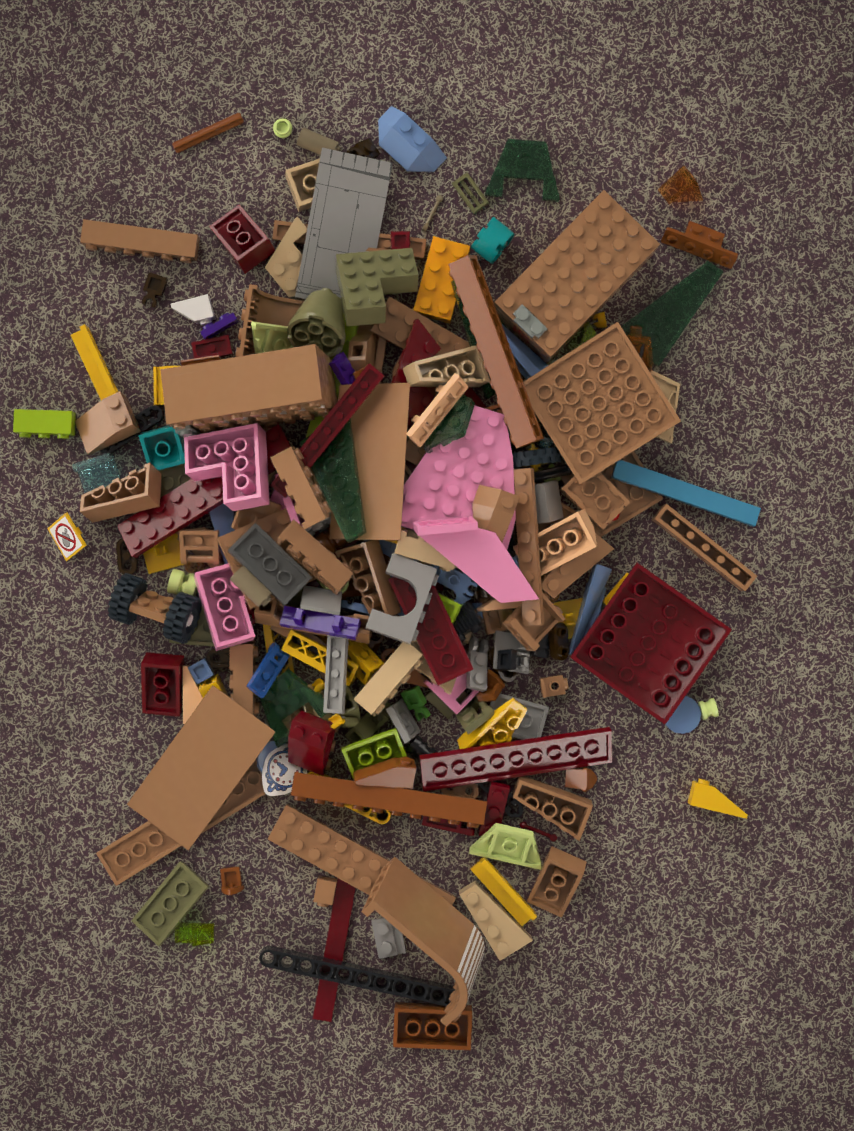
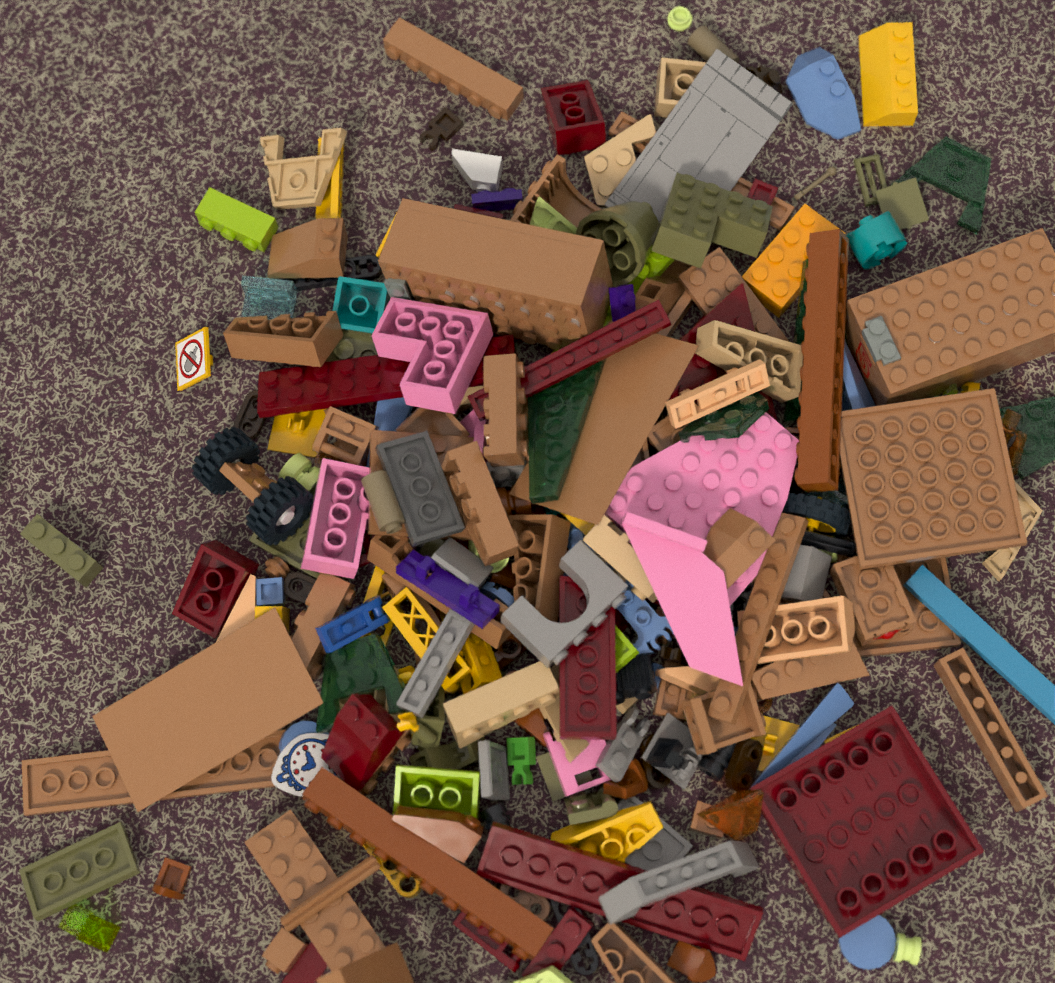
camera: 30 degrees right, 15 degrees down
(47, 707) = (61, 550): none -> olive brick
(75, 374) = (303, 179): none -> tan wing
(197, 652) = (276, 568): none -> medium nougat plate
(338, 846) = (330, 893): none -> medium nougat axle
(448, 108) = (888, 75): none -> yellow slope
(499, 203) = (903, 203): none -> olive piece
(550, 735) = (677, 877): none -> light grey slope
(567, 676) = (736, 814): none -> clear orange slope

